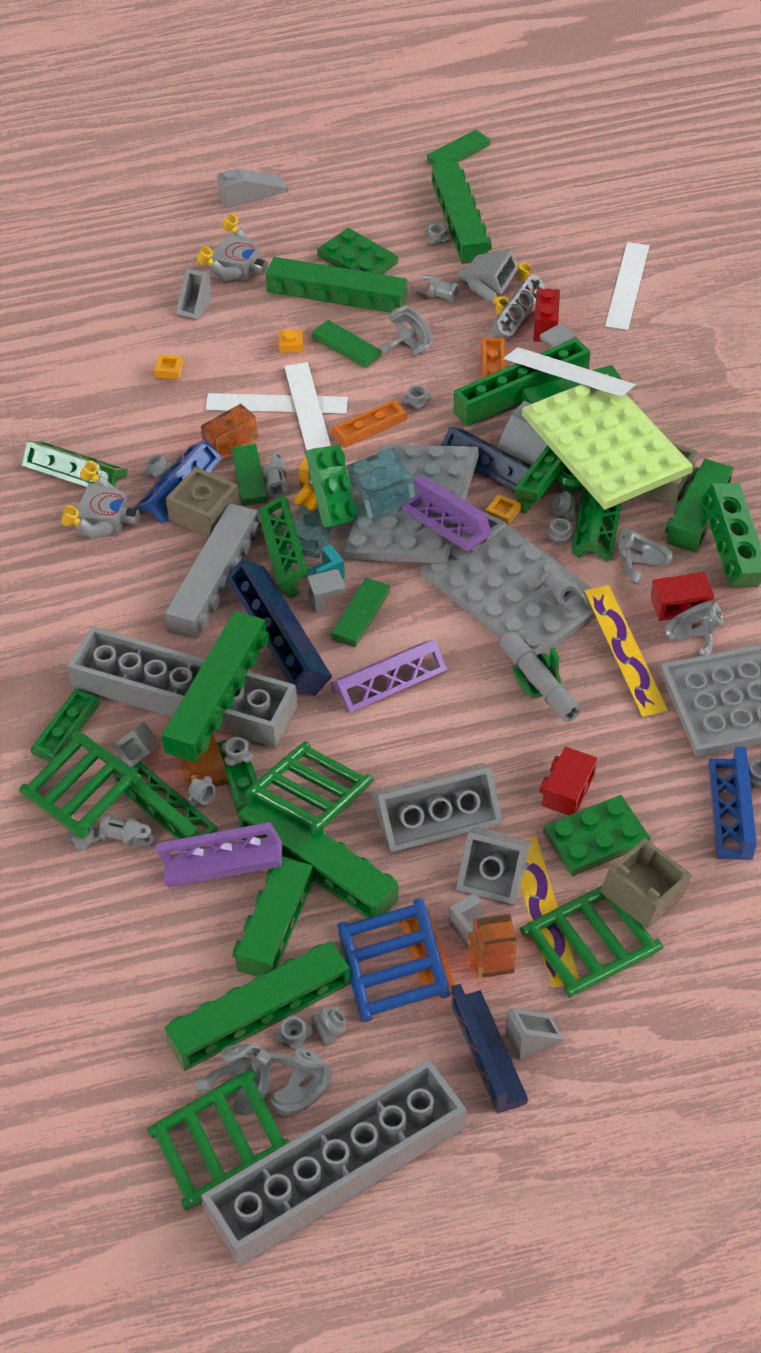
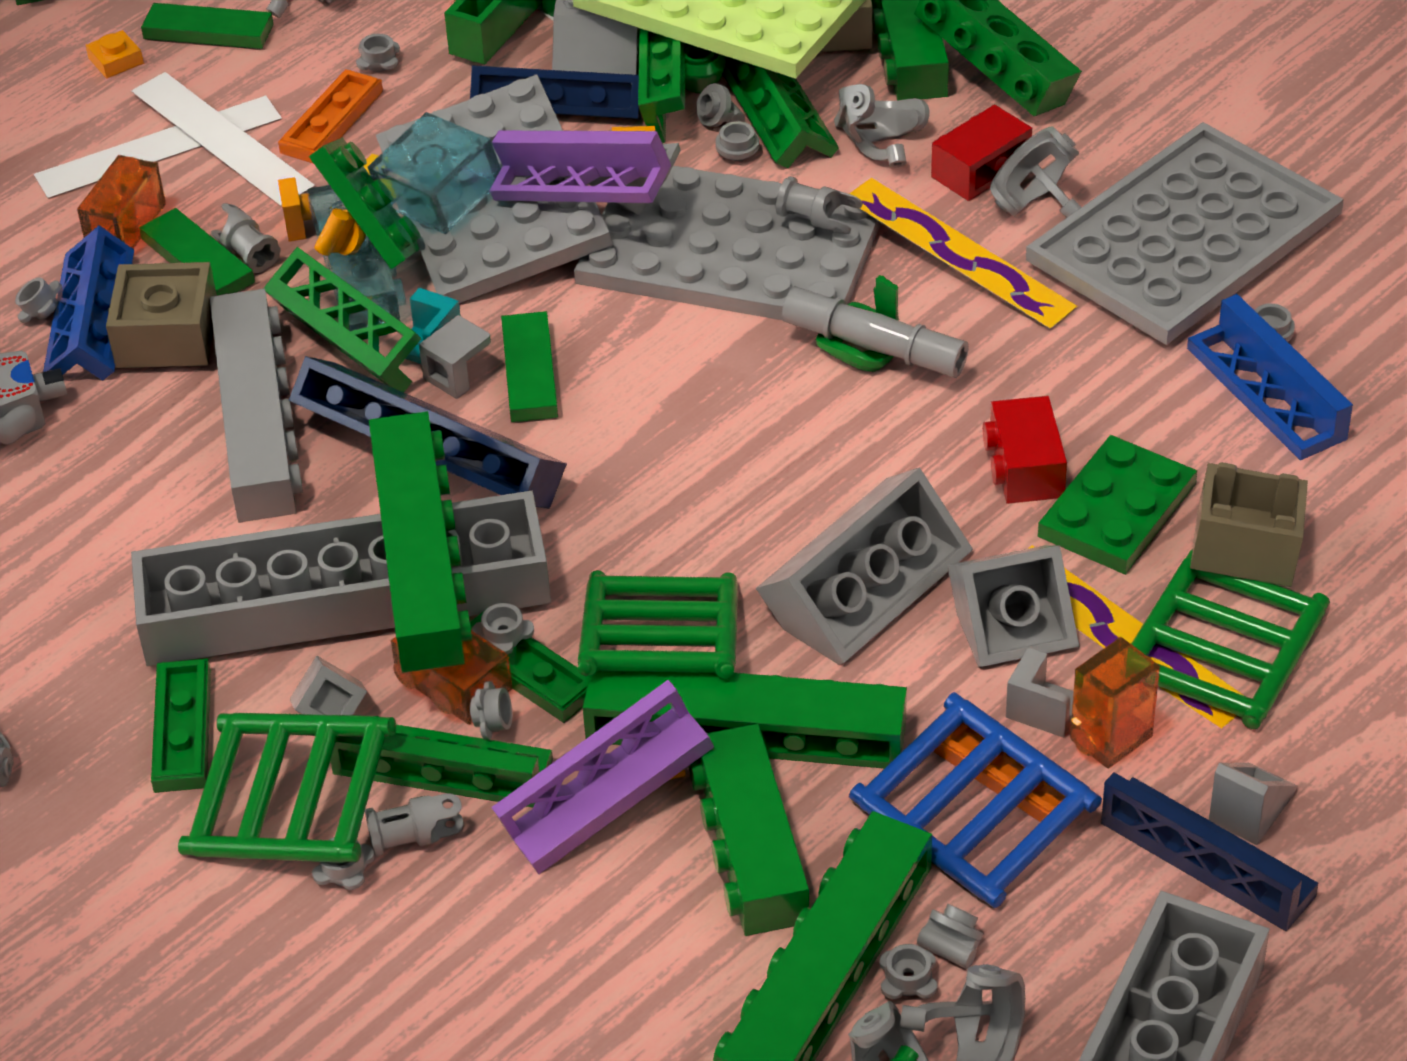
camera: 30 degrees left, 5 degrees down
(381, 667) = (630, 420): medium lavender fence -> none

